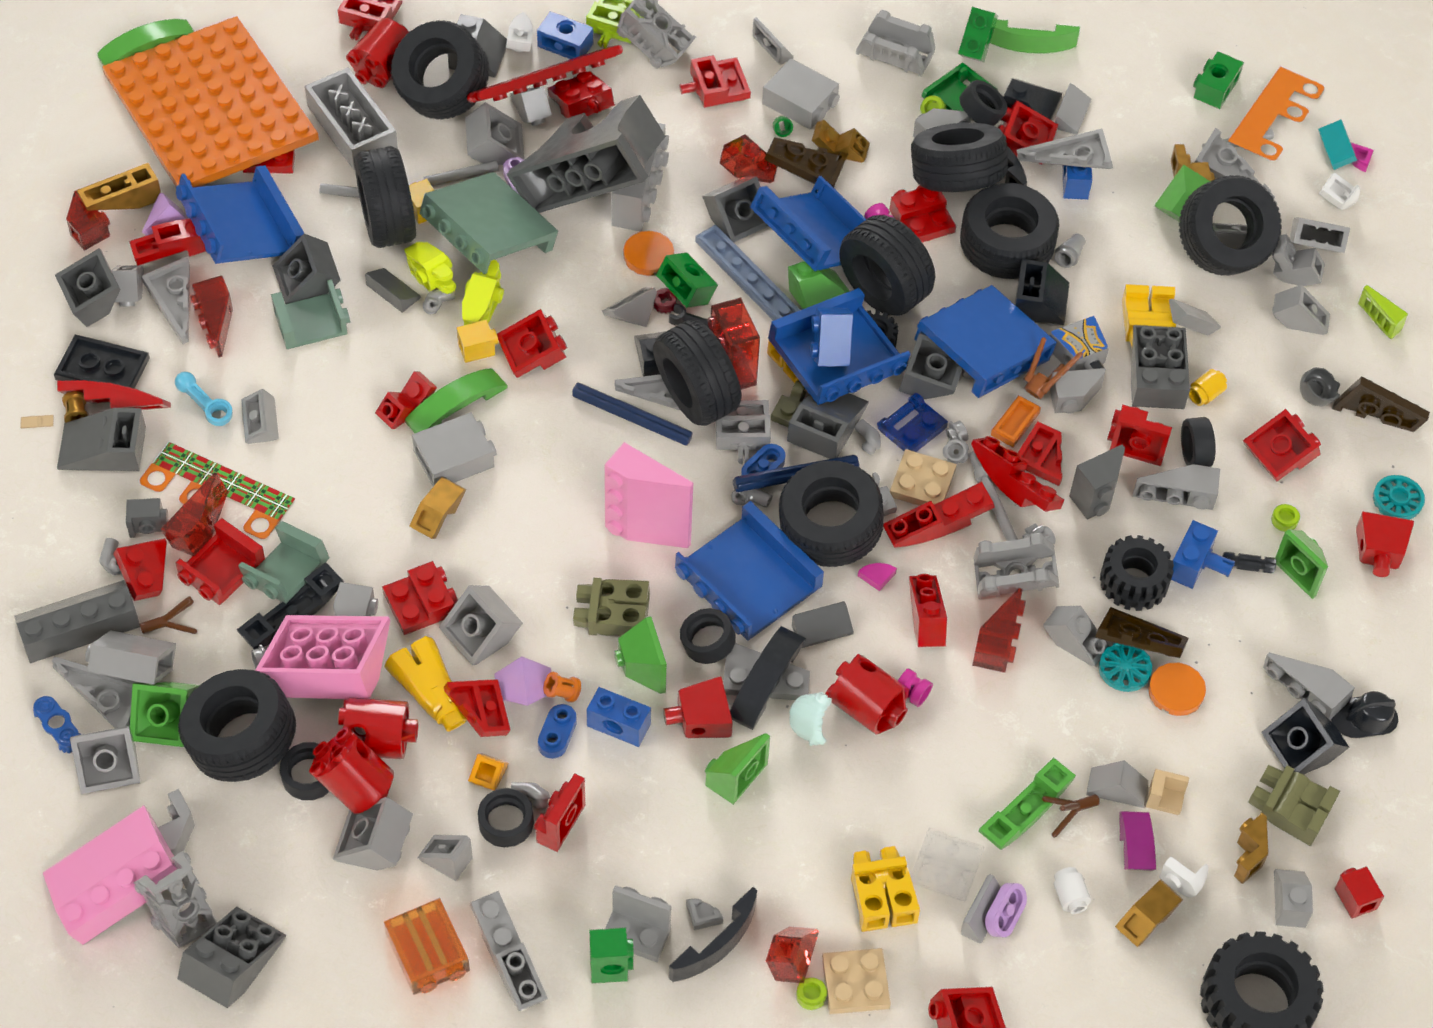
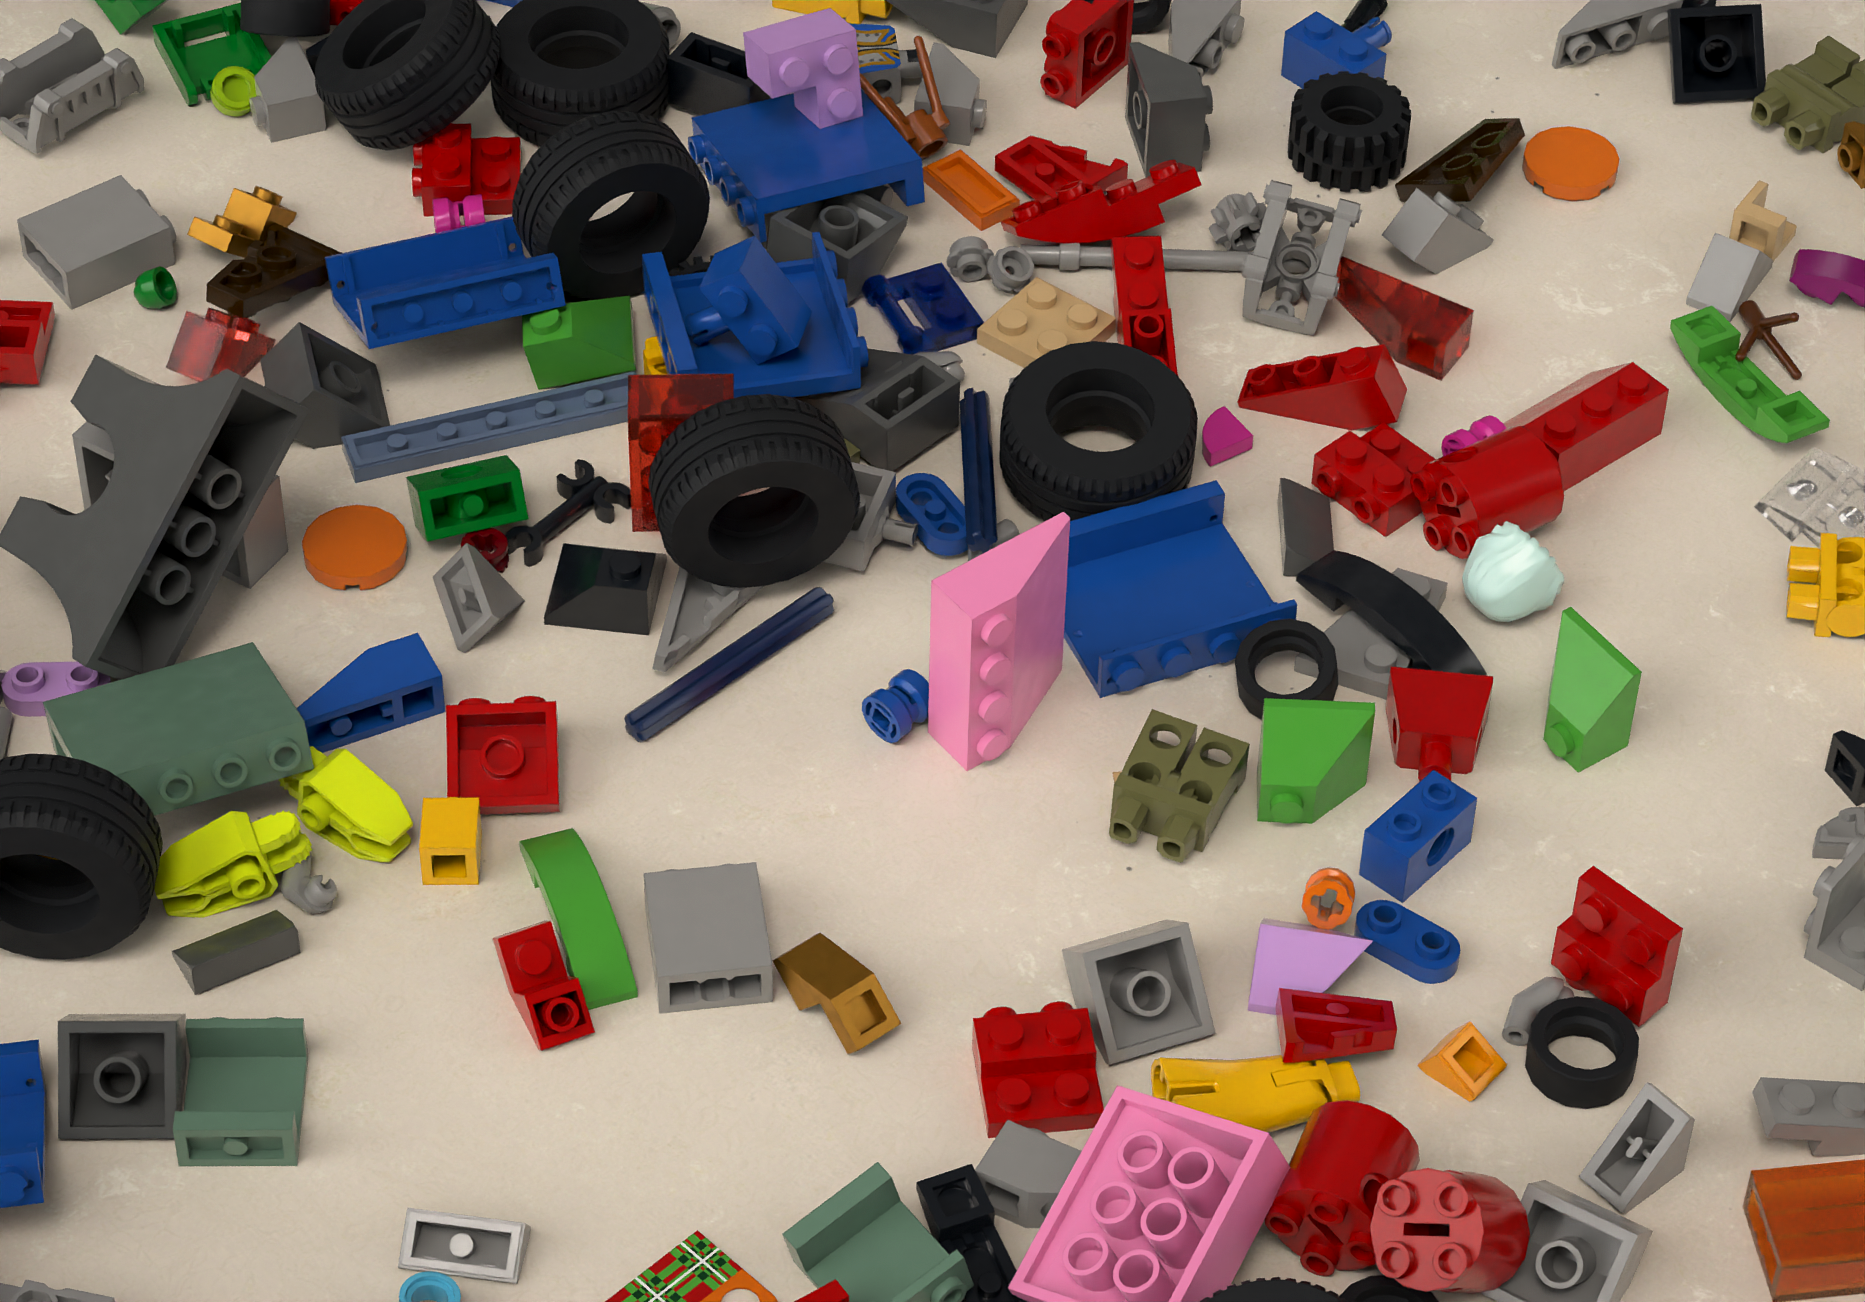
camera: 70 degrees left, 10 degrees down
(216, 309) = (146, 1252): clear red slope -> none
(552, 285) = (375, 694): none -> blue slope
(878, 644) = (1372, 476): none -> red plate
(953, 732) = (1597, 419): none -> red slope
(1024, 308) = (814, 60): none -> lavender brick
(1125, 667) = (1515, 205): teal wheel -> none

